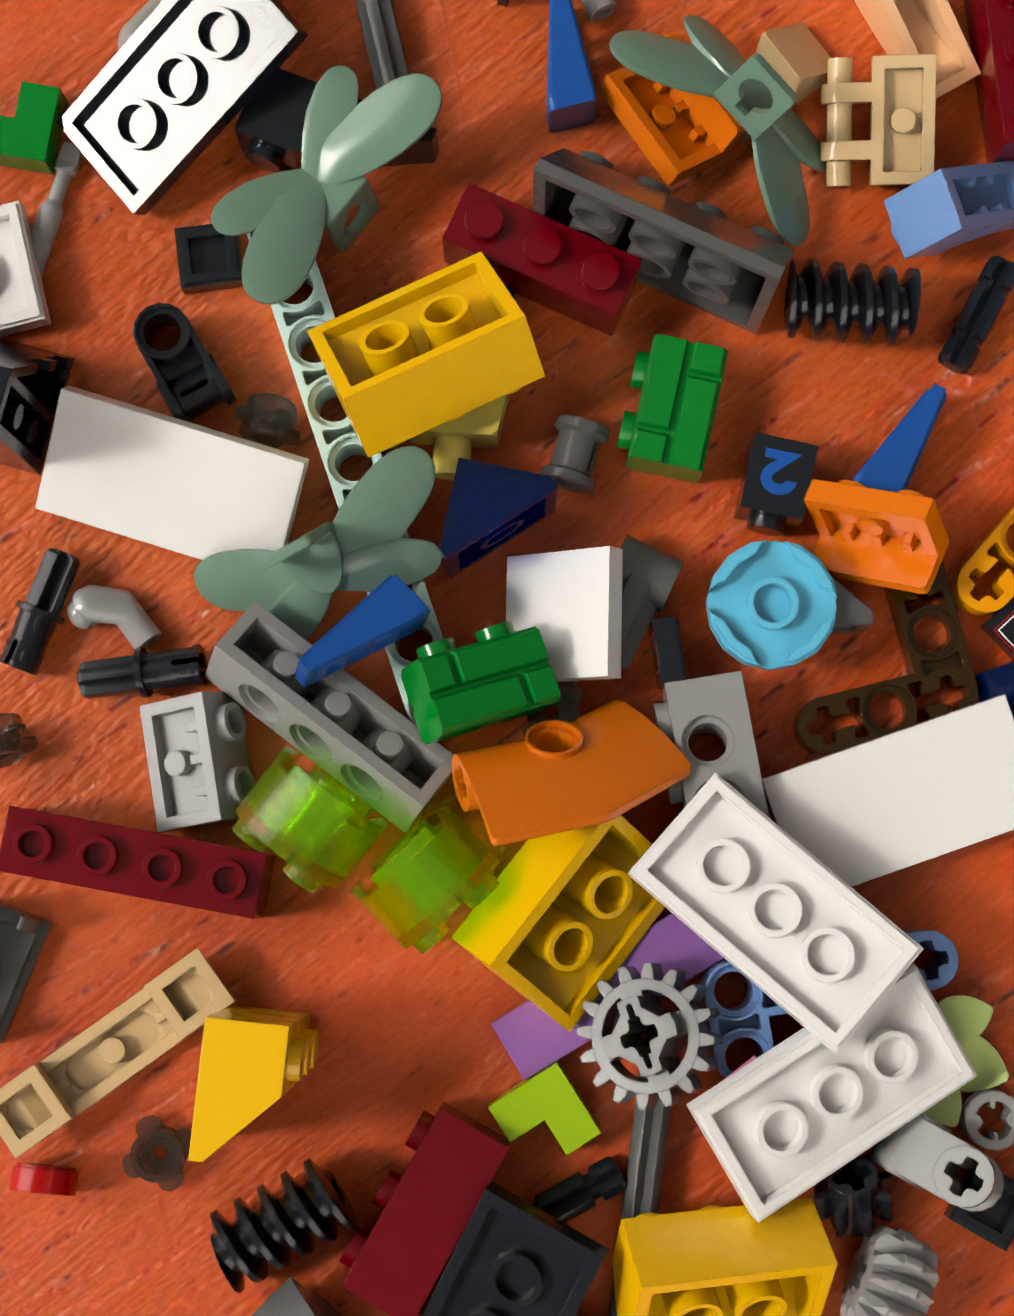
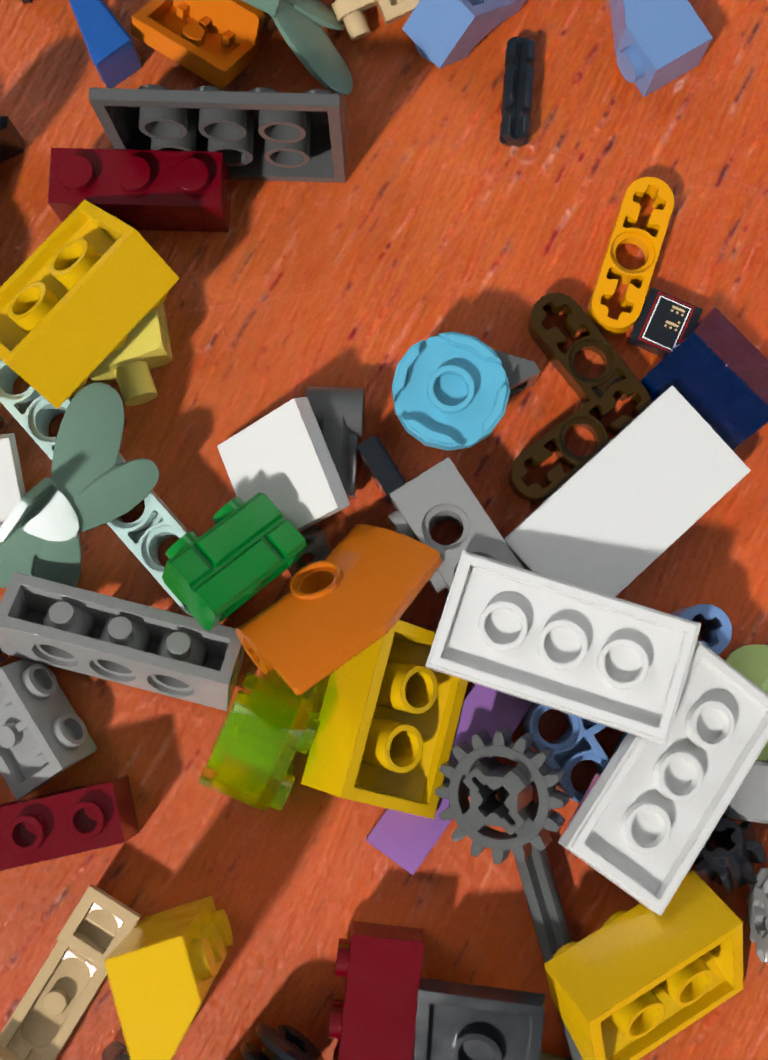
camera: 25 degrees left, 0 degrees up
(307, 822) = (137, 740): clear neon green brick -> none
(375, 623) = (118, 550): blue slope -> none
(490, 509) = (183, 411): clear blue slope -> none
(550, 1098) = (438, 882): lime piece -> none
(575, 453) = (237, 337): dark grey bush -> none
(579, 1192) = (498, 949): black axle -> none
(675, 407) = (303, 266): green brick -> none
(775, 484) = (411, 293): black brick -> none
(852, 301) = (411, 119): black piece -> none
(877, 534) = (513, 296): orange bracket -> none
(898, 455) = (499, 245): blue slope -> none

